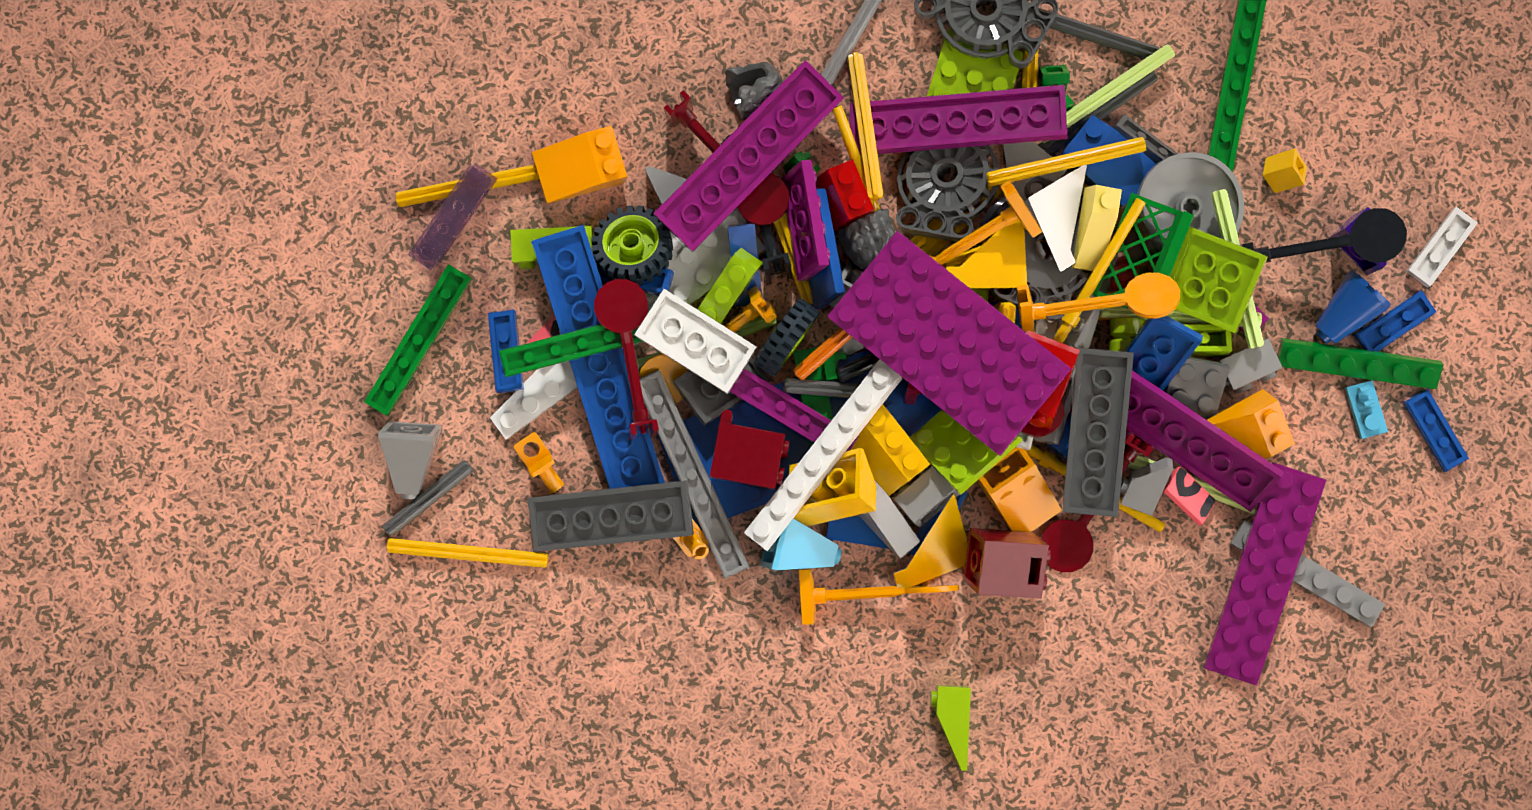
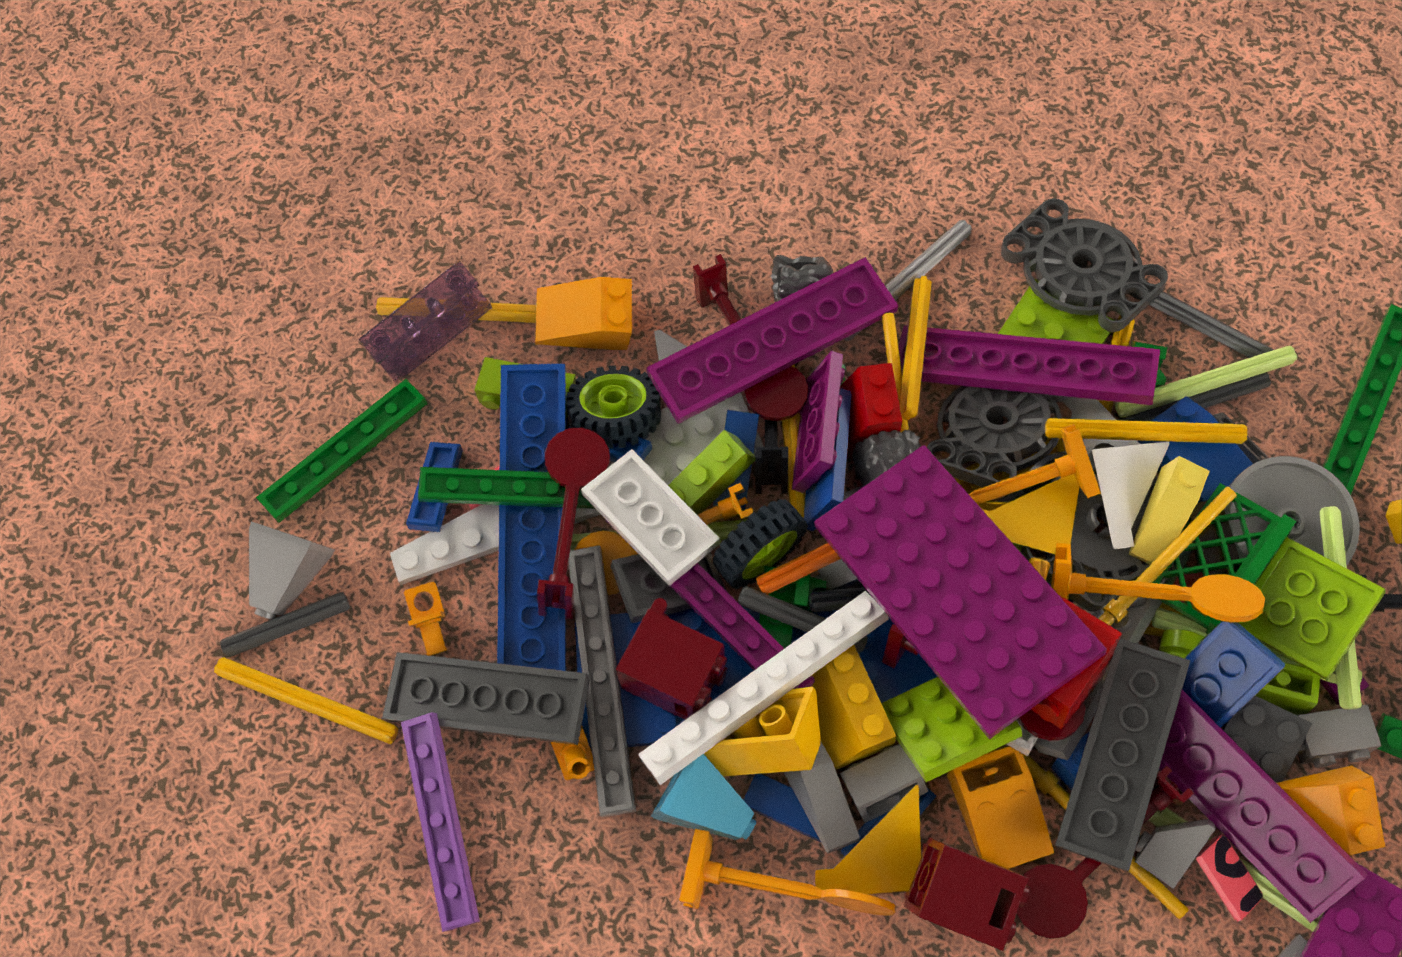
camera: 25 degrees right, 20 degrees down
(606, 615) = (440, 822): none -> medium lavender tile

